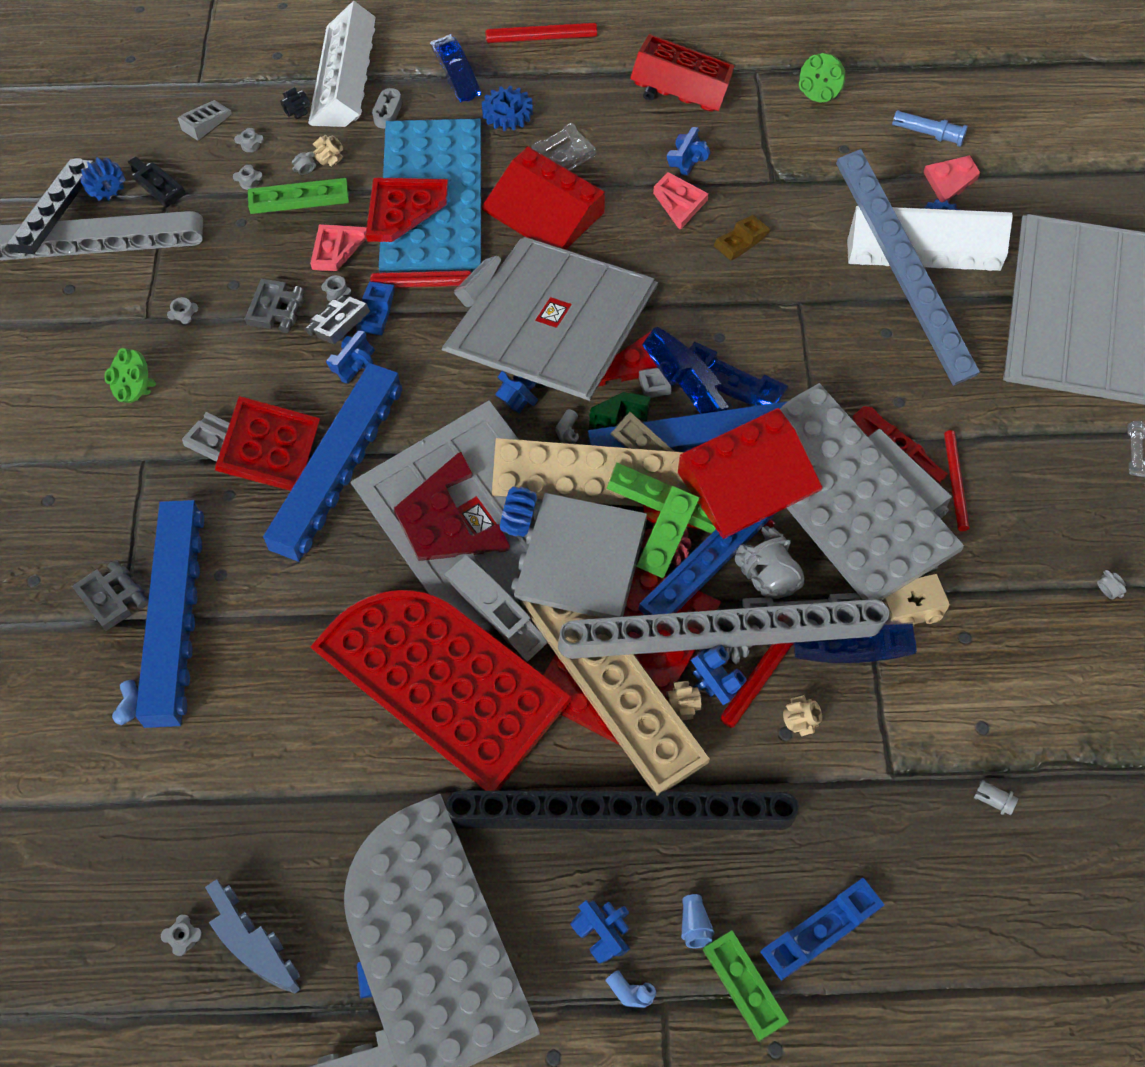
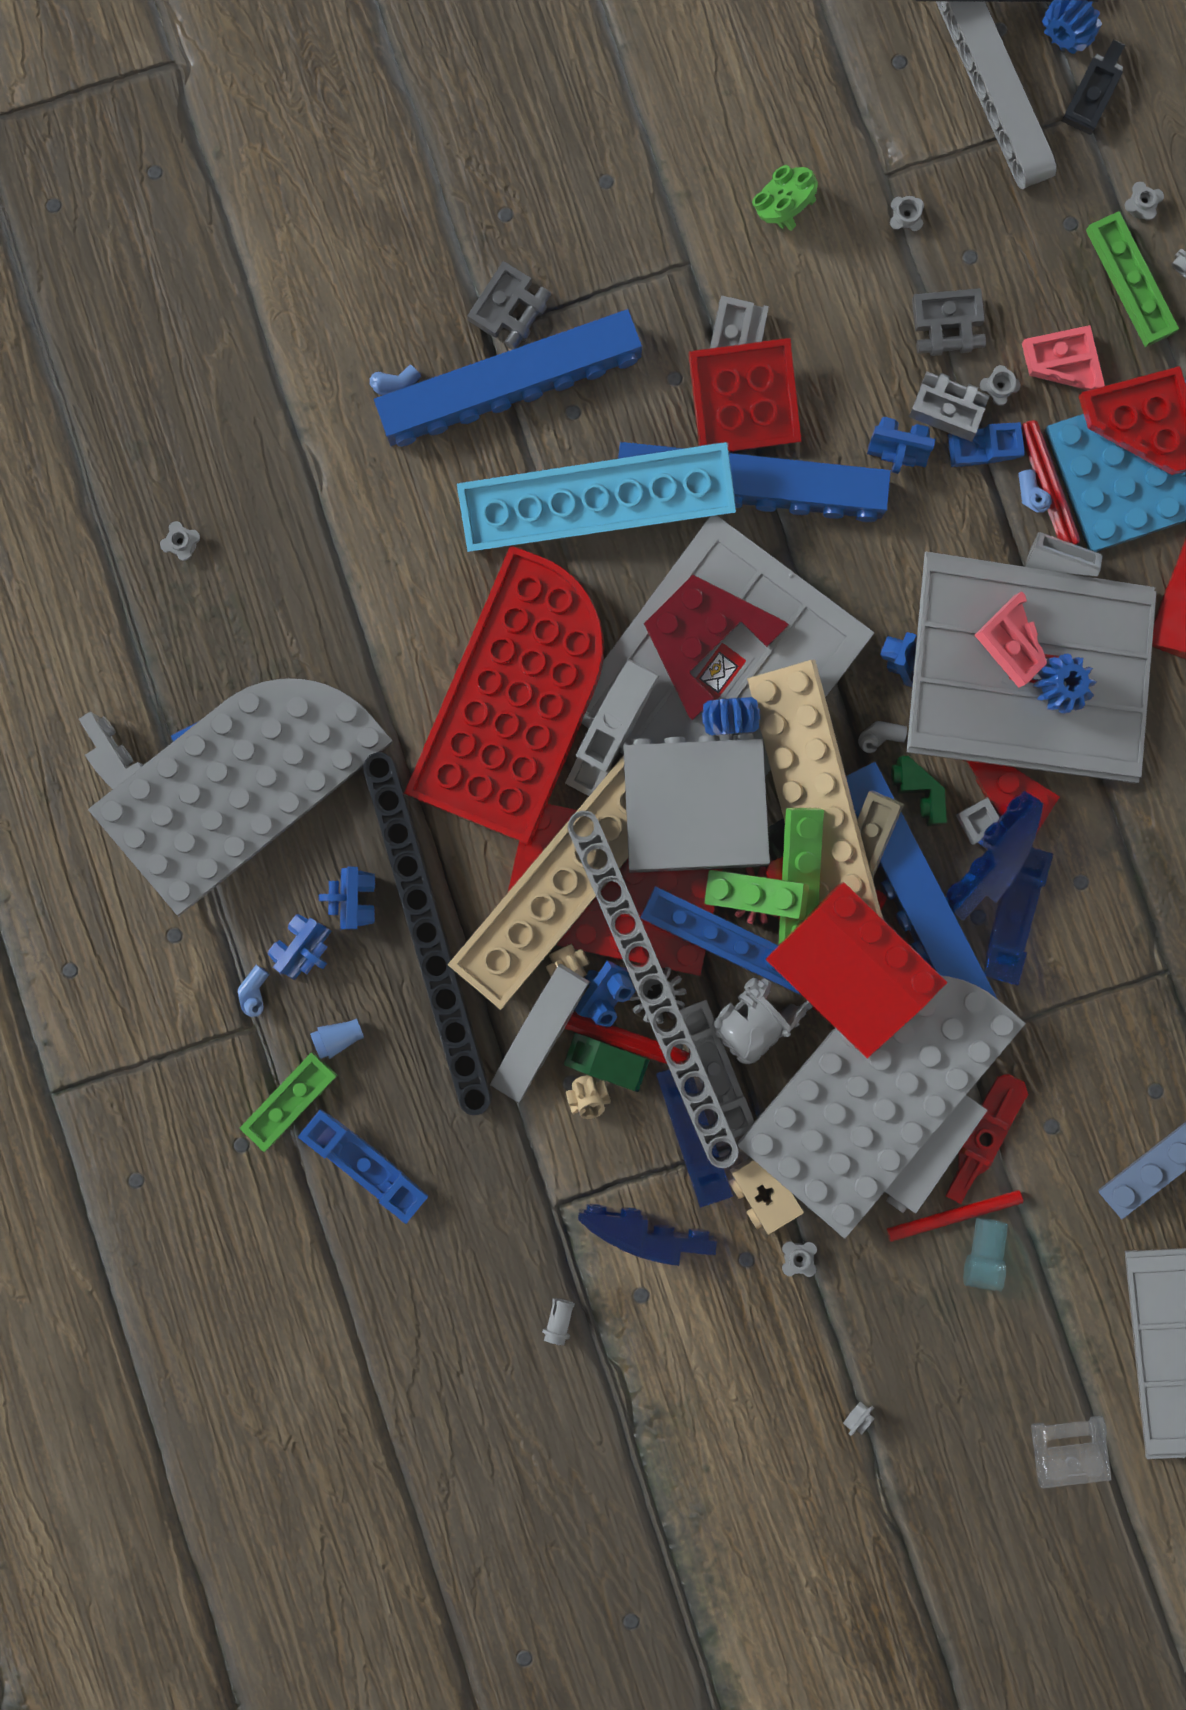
camera: 75 degrees right, 25 degrees up
(255, 949) = (182, 619): sand blue slope -> none
(299, 568) = (597, 497): none -> medium azure plate
(425, 290) = (1031, 494): none -> medium blue arm
(531, 313) = (1013, 641): none -> coral wing
(570, 872) = (350, 912): none -> blue hips
(572, 293) = (1077, 681): none -> blue gear
(738, 736) = (539, 1032): none -> light grey slope
(775, 693) = (606, 1062): none -> dark green slope
(931, 706) = (631, 1234): none -> clear blue slope
(968, 601) = (804, 1267): none -> light grey plate
(1000, 466) = (986, 1265): none -> clear light blue piece

